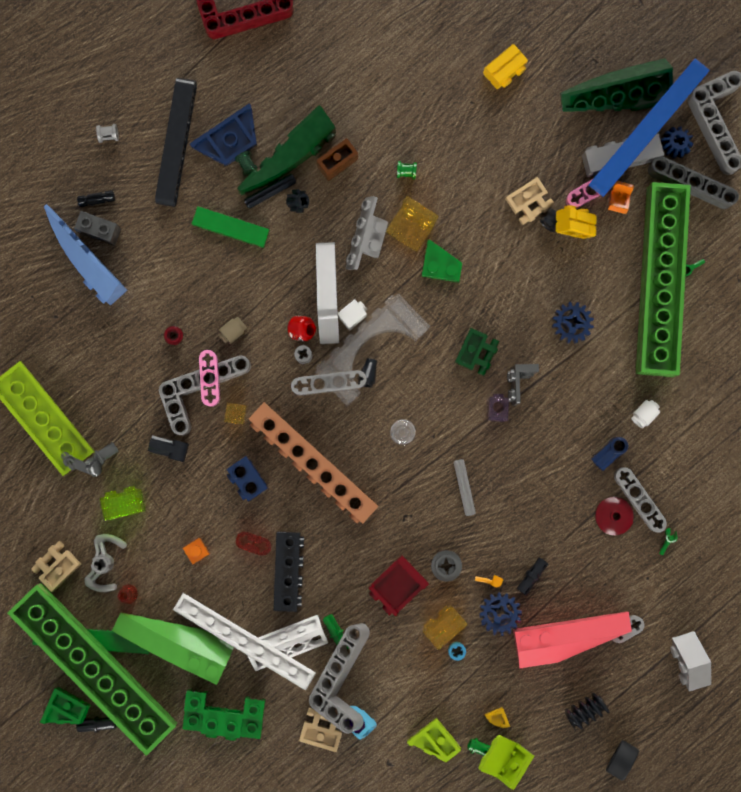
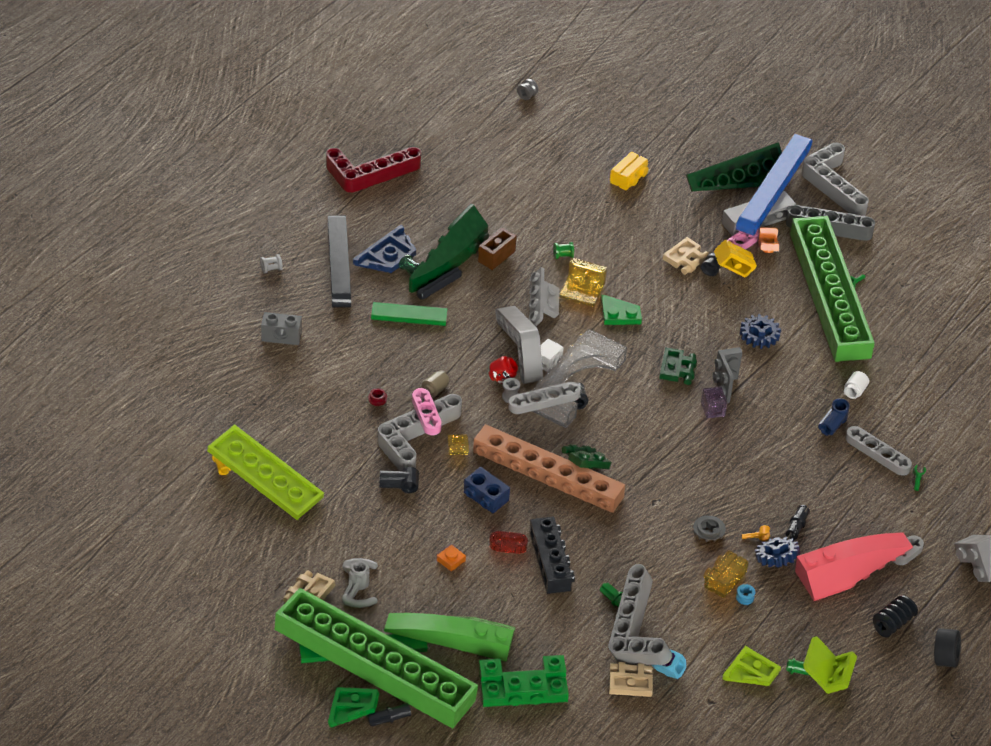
camera: 10 degrees left, 40 degrees down
(85, 261) = (278, 350): medium blue wedge -> none
(92, 465) = (326, 503): dark grey pin -> none
(96, 198) = (283, 308): black axle -> none
(122, 504) = (365, 528): clear neon green brick -> none
(131, 593) = (391, 599): clear red cone -> none
(244, 641) = (526, 609): white tile -> none
(287, 637) = (562, 610): white fence -> none
(297, 201) = (468, 283): black gear -> none
(353, 466) = (586, 457): none -> dark green plate
(397, 586) = (667, 549): dark red panel -> none
(402, 432) = (628, 430): clear wheel -> none
(464, 487) = (704, 467): light grey axle -> none
(498, 718) = (804, 641): yellow tile -> none
(605, 512) = (859, 469): dark red dish -> none
(677, 149) = (805, 196): dark blue gear -> none

